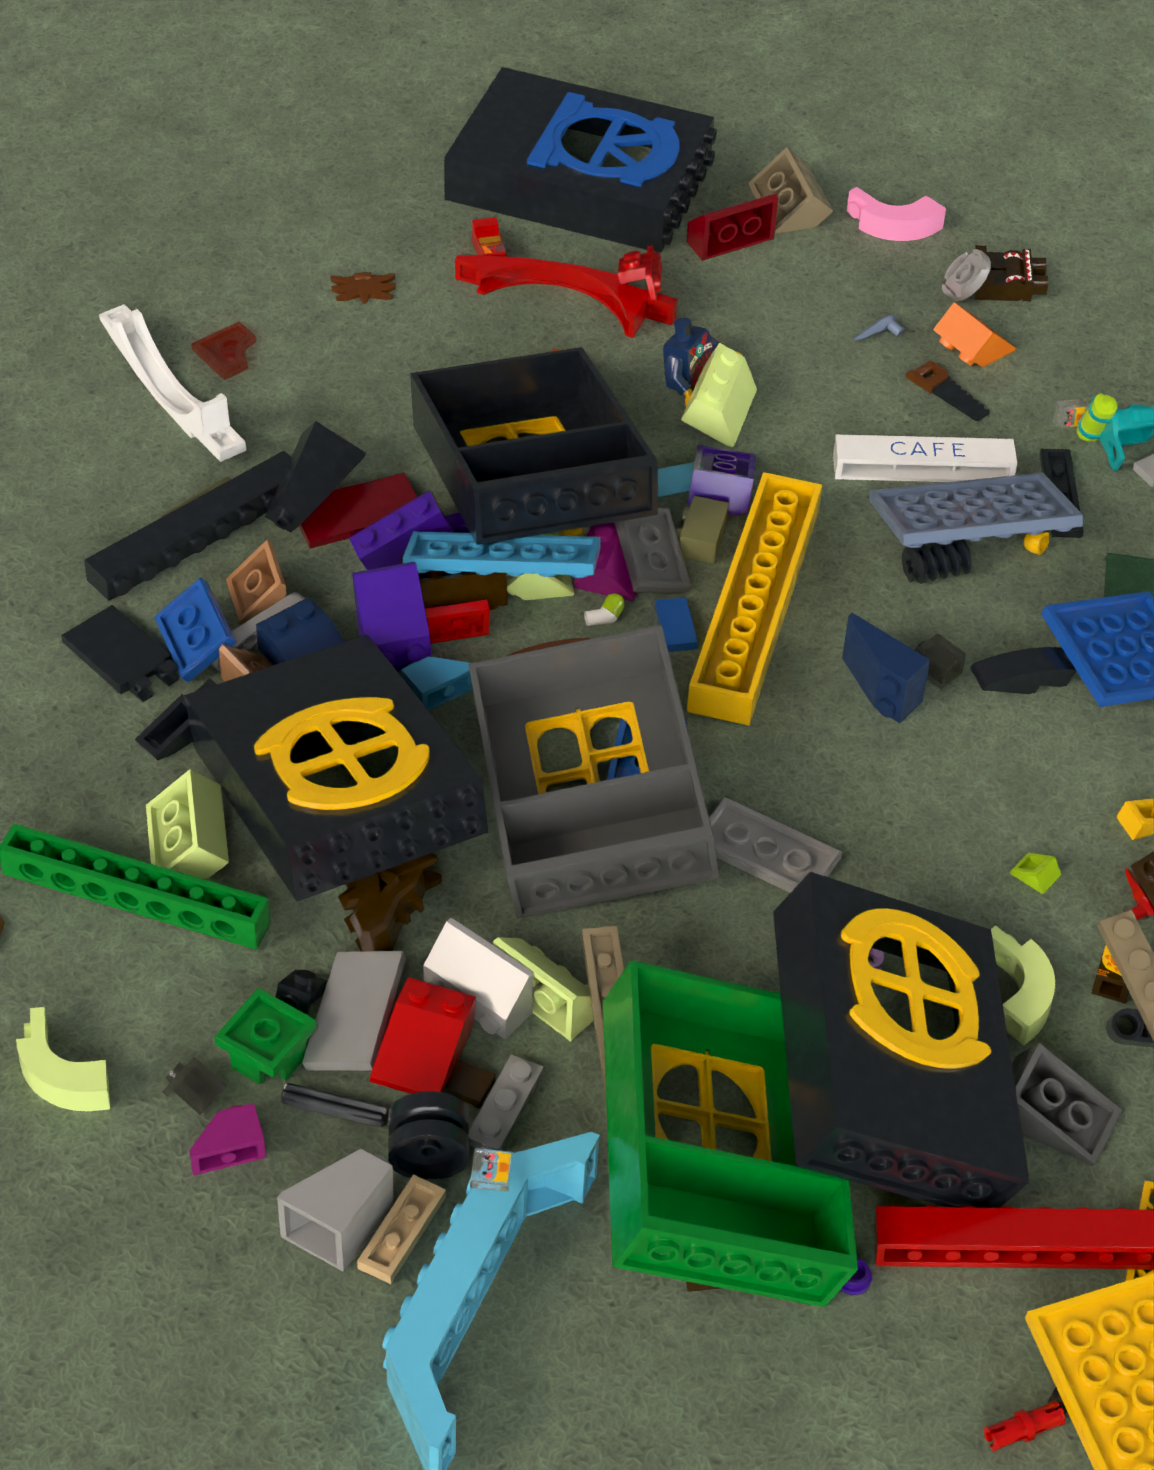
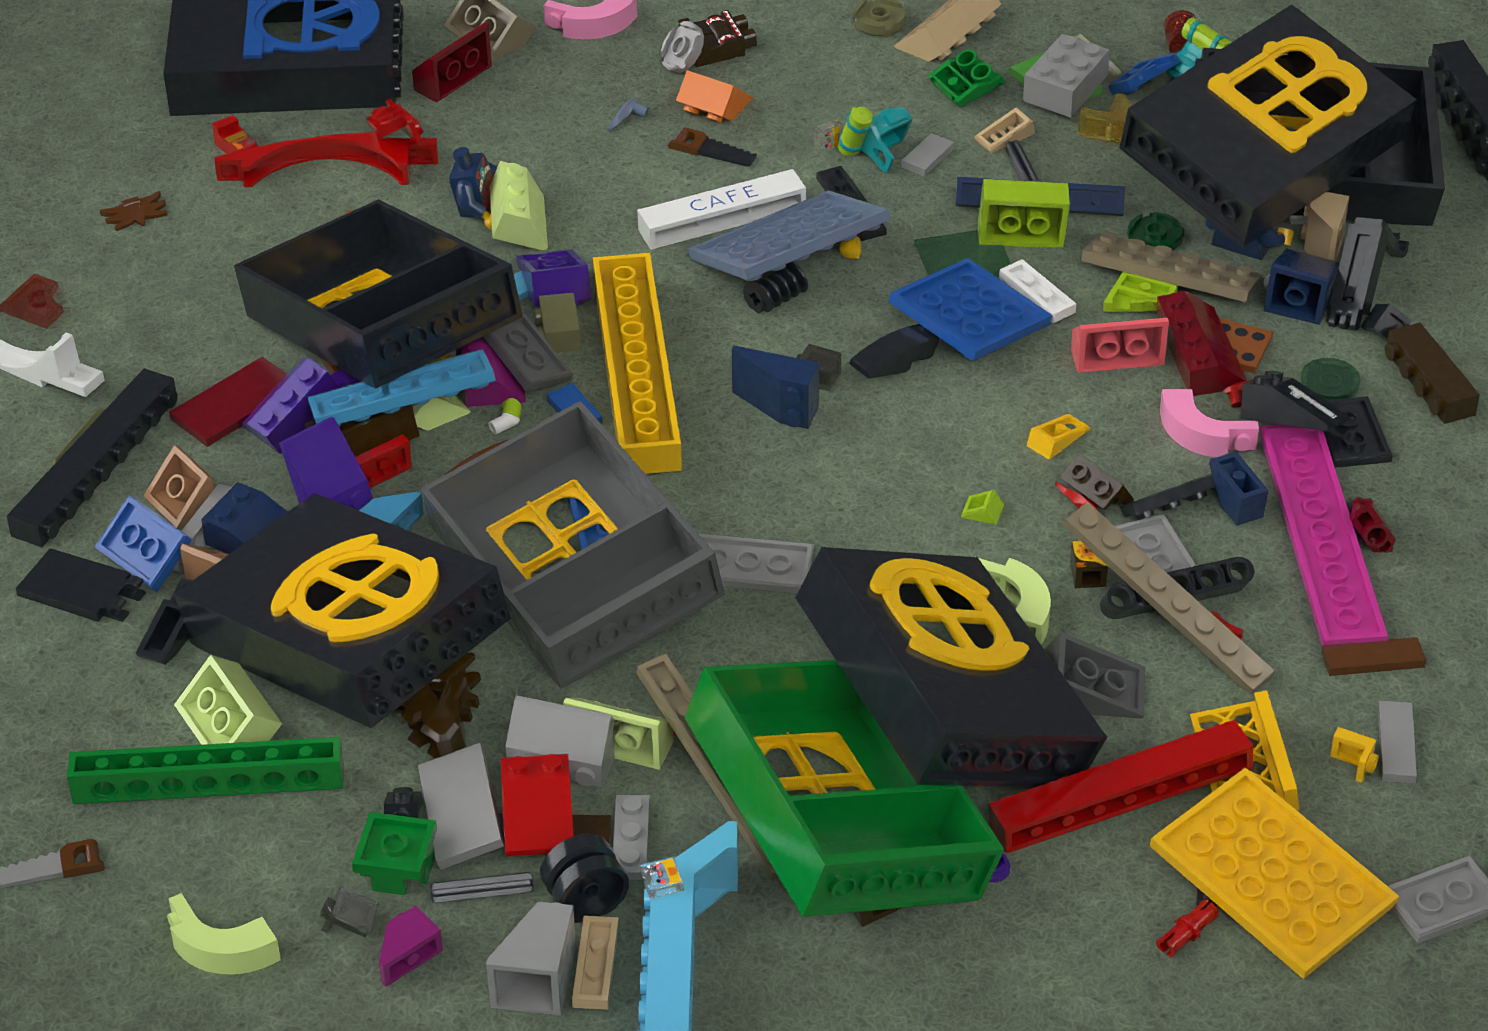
camera: 20 degrees left, 5 degrees down
(313, 472) = (184, 380): black slope -> none

